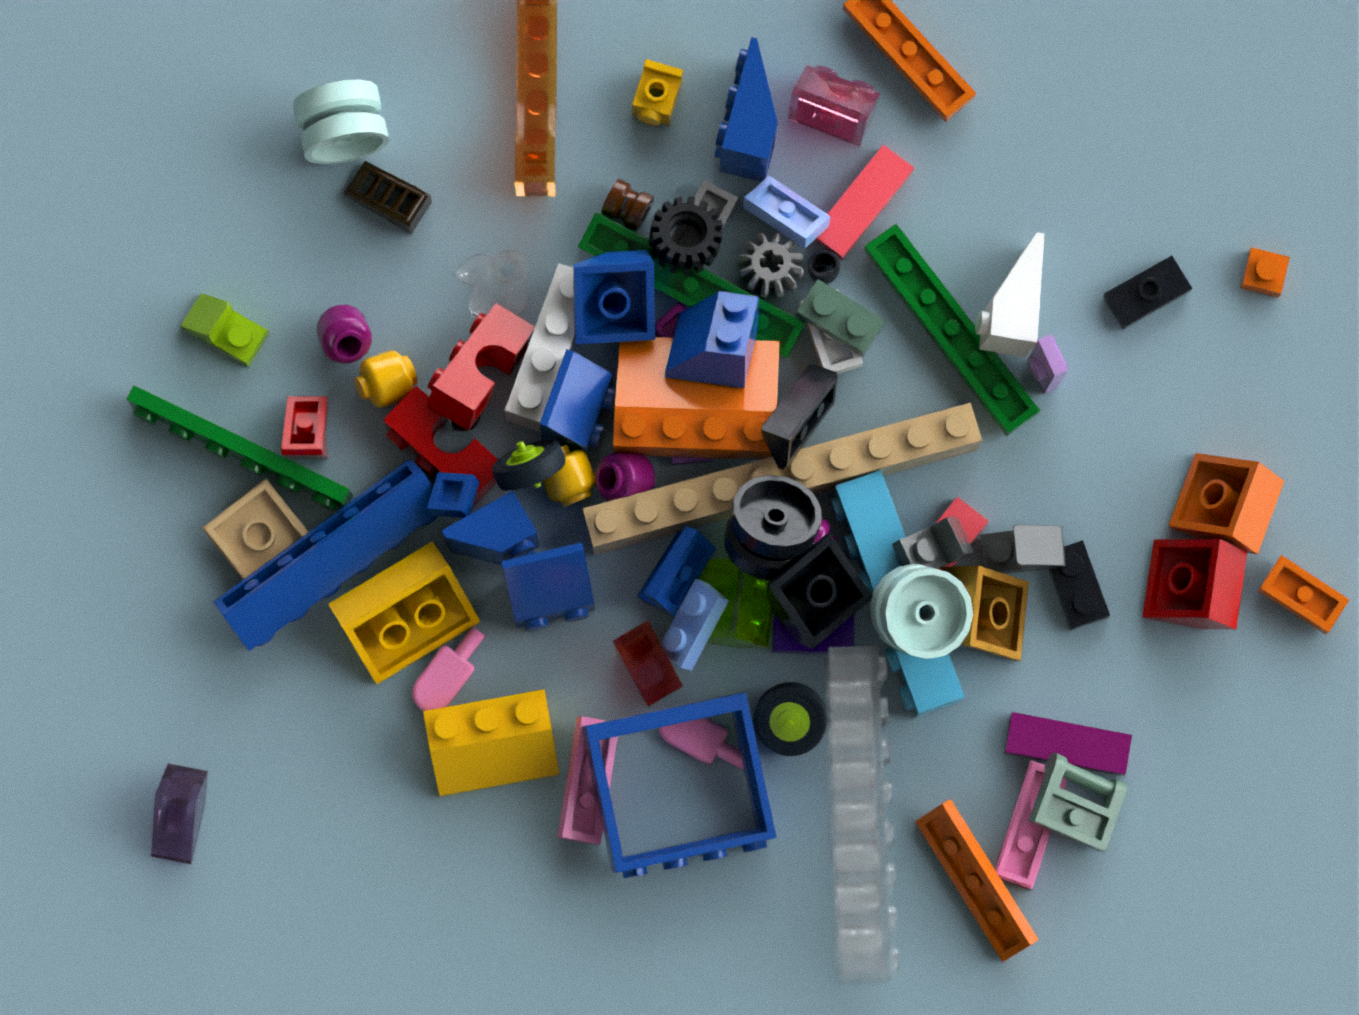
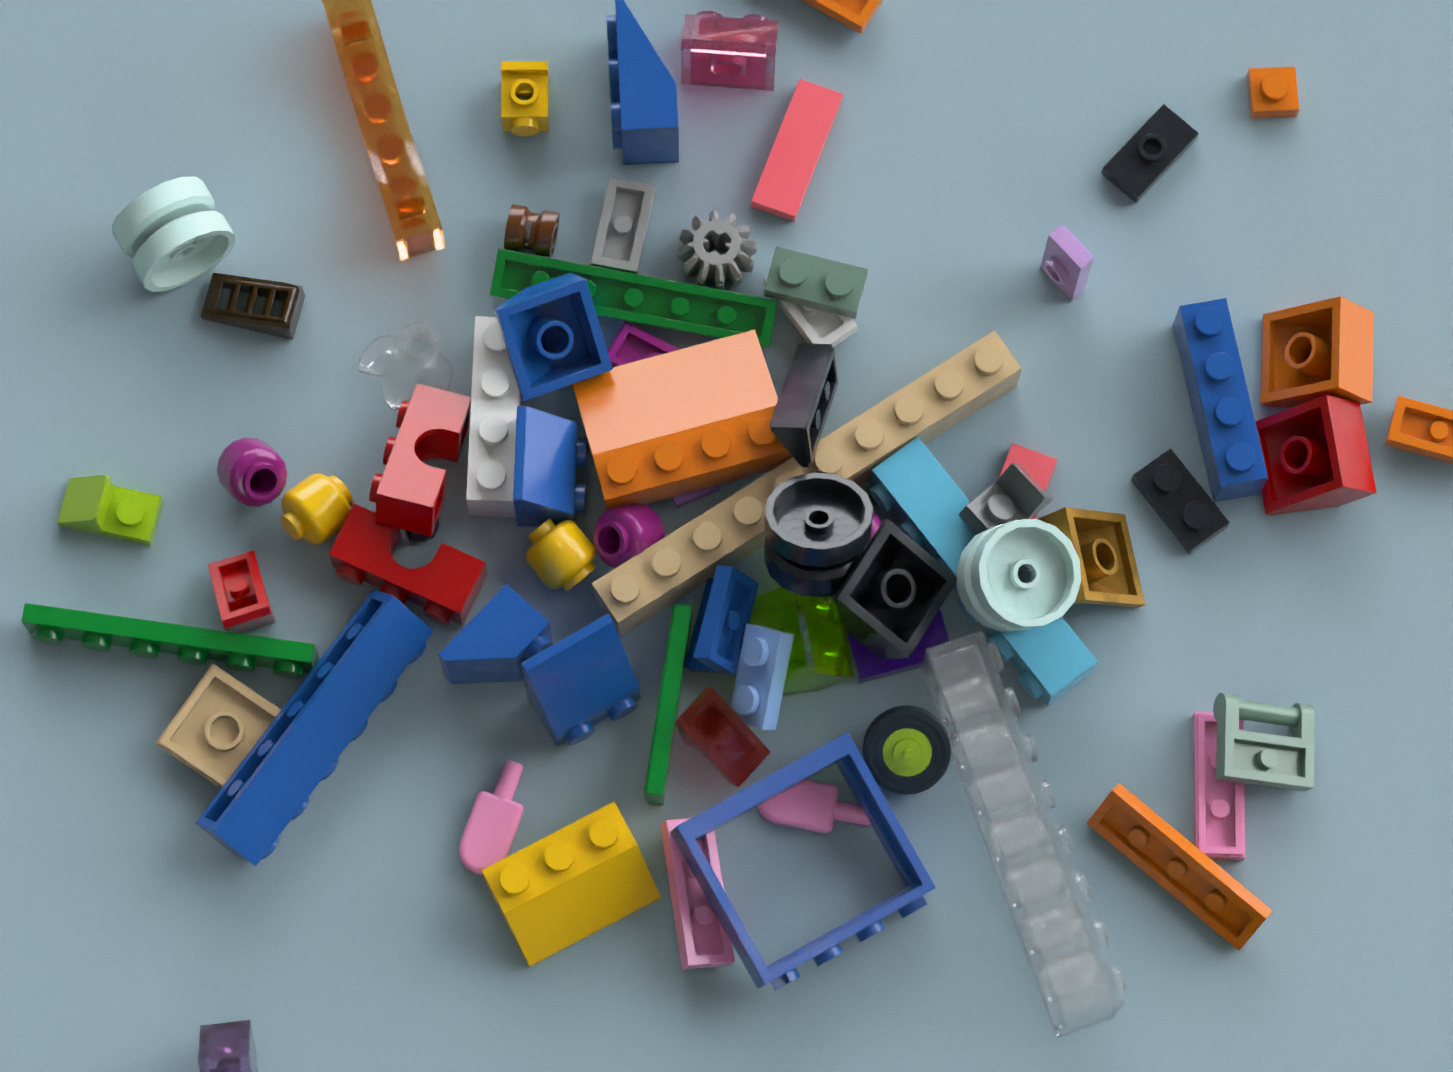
camera: 15 degrees left, 5 degrees down
(404, 612) = (422, 767): yellow slope -> none
(453, 495) = (438, 612): blue plate -> none
(528, 464) = (514, 551): black wheel -> none
(614, 622) = (668, 704): none -> green tile
(692, 215) = (610, 219): black tyre -> none
(715, 340) = (682, 348): blue slope -> none
(786, 212) = (715, 184): light blue plate -> none
(822, 262) = (773, 232): black hinge -> none
(951, 329) = (944, 260): green plate -> none
(1012, 314) = (1008, 219): white slope -> none
(1023, 549) = (1108, 477): slope -> none
(1080, 744) = (1252, 677): magenta tile -> none
(1135, 514) = (1220, 400): none -> blue brick

